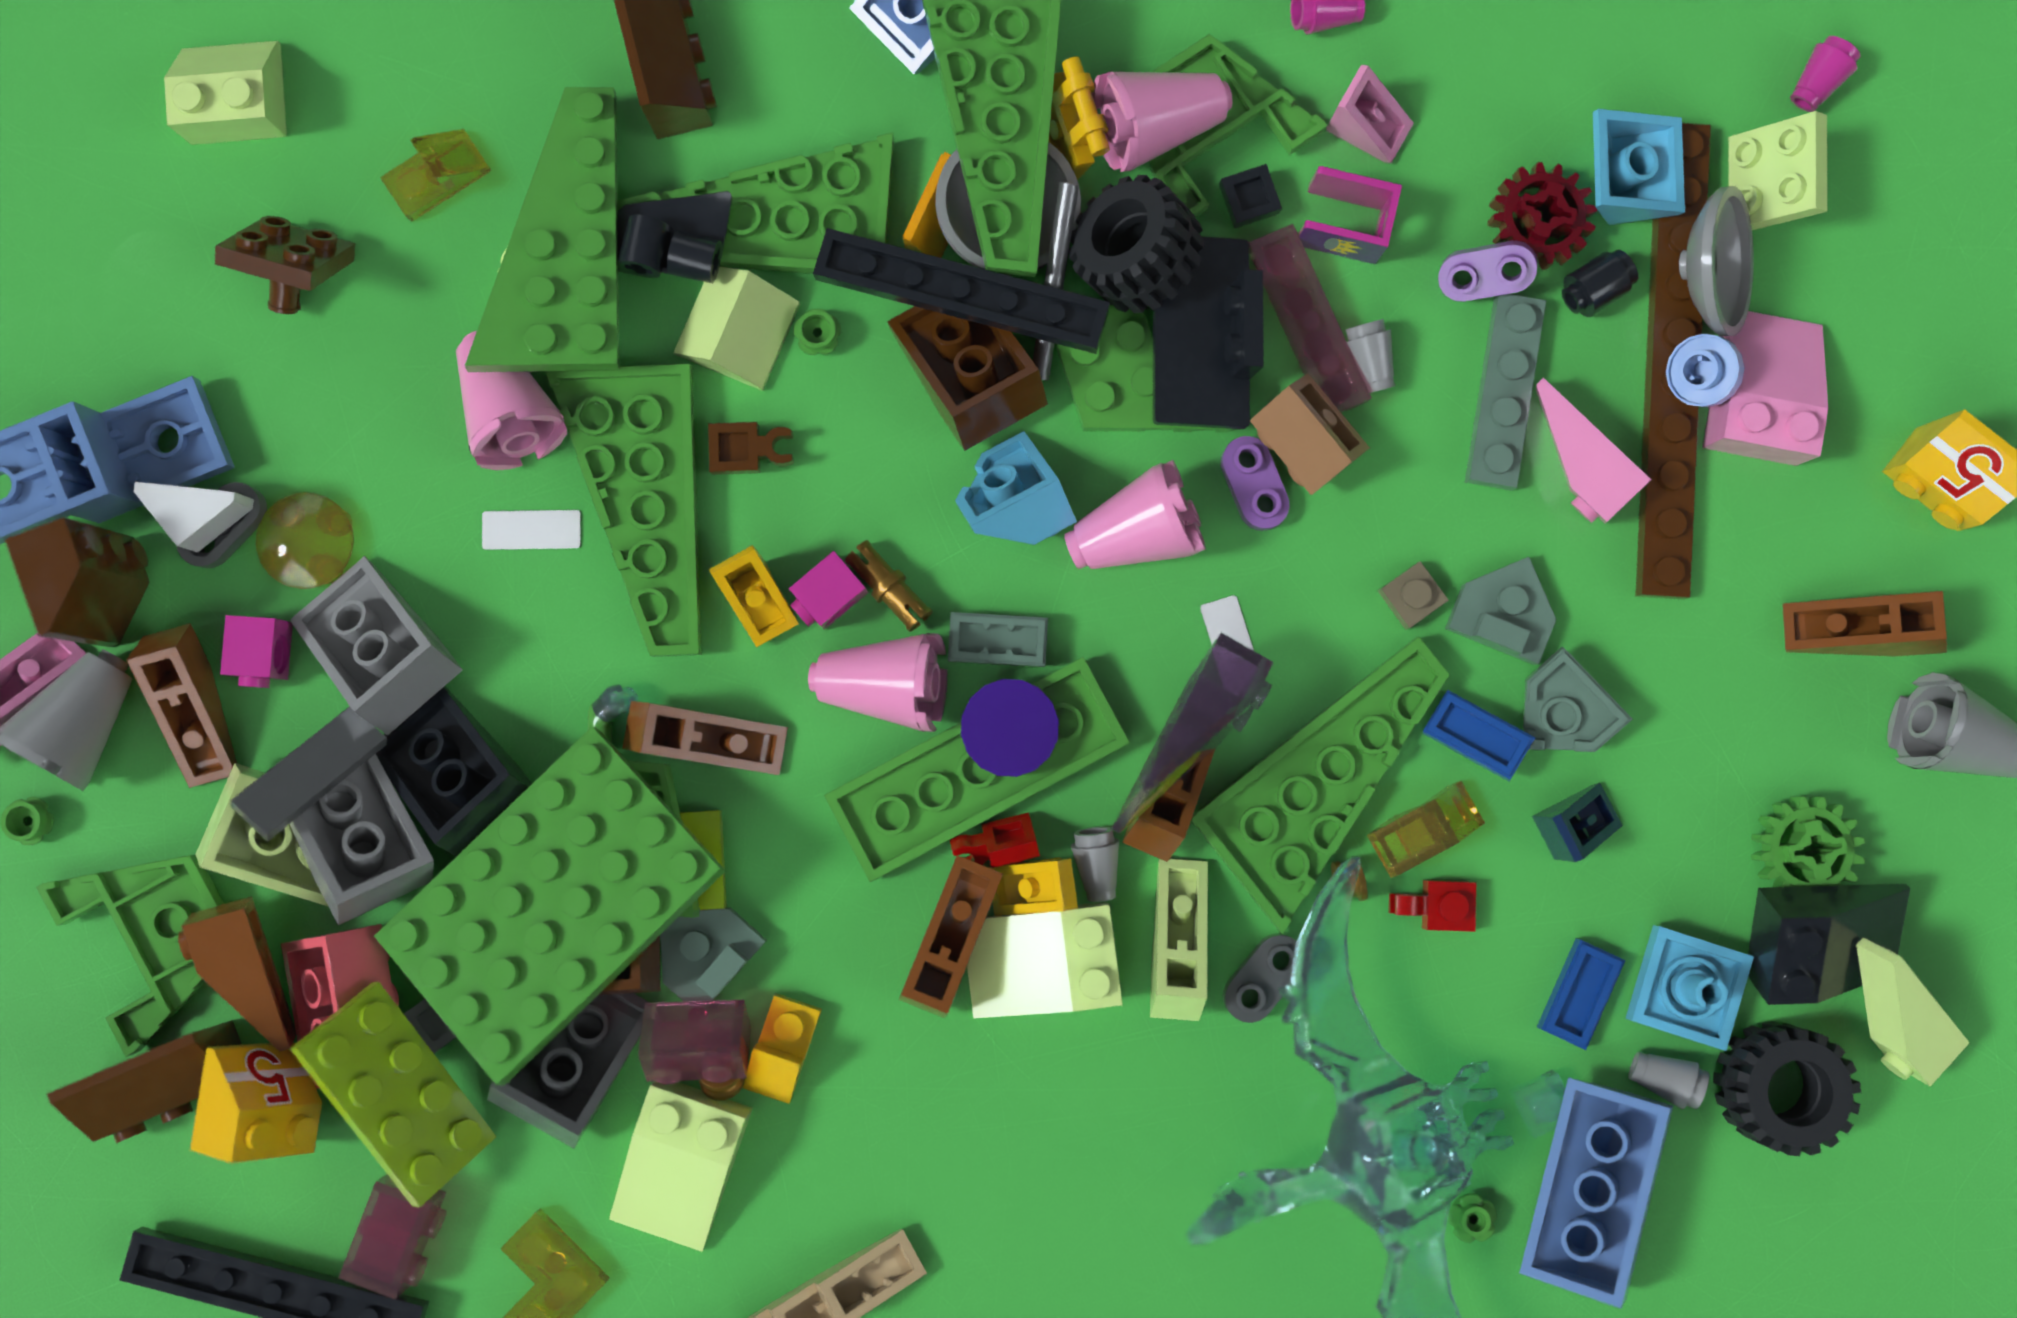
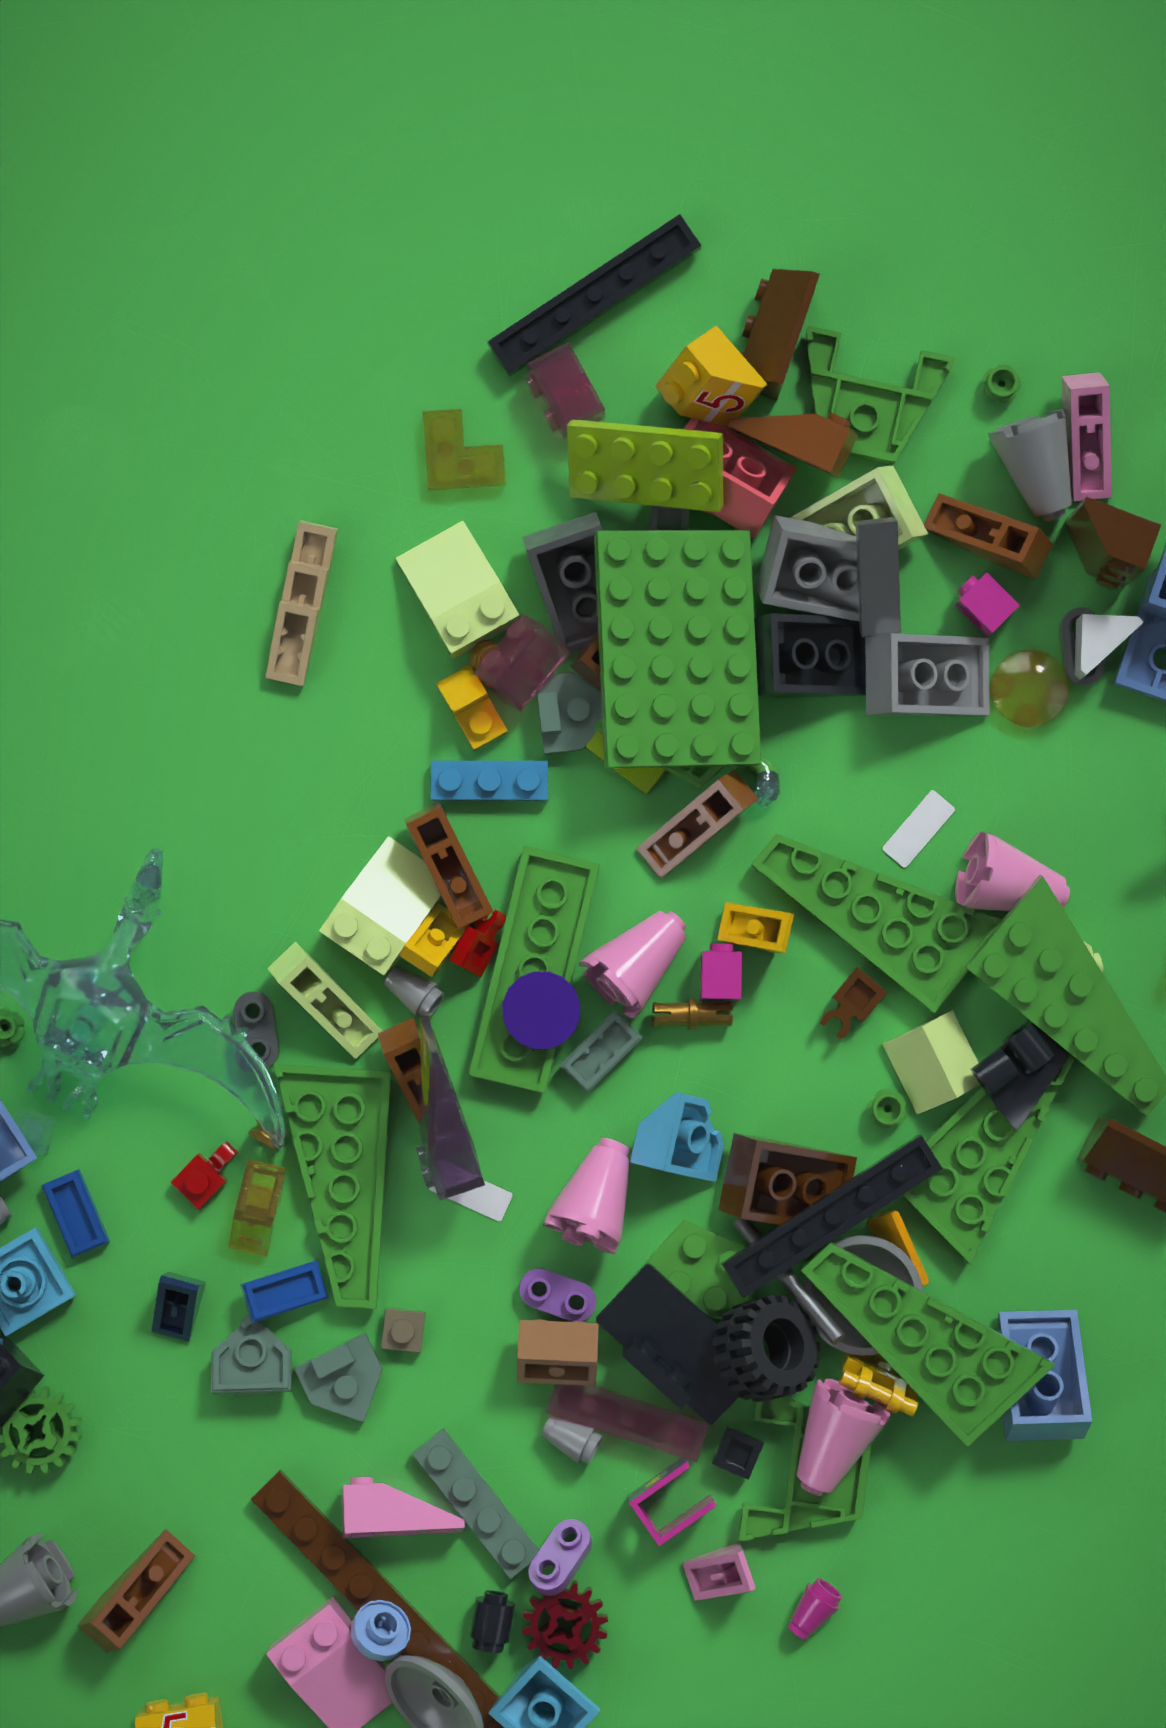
camera: 135 degrees right, 0 degrees up
(837, 969) = (489, 780): none -> dark azure plate

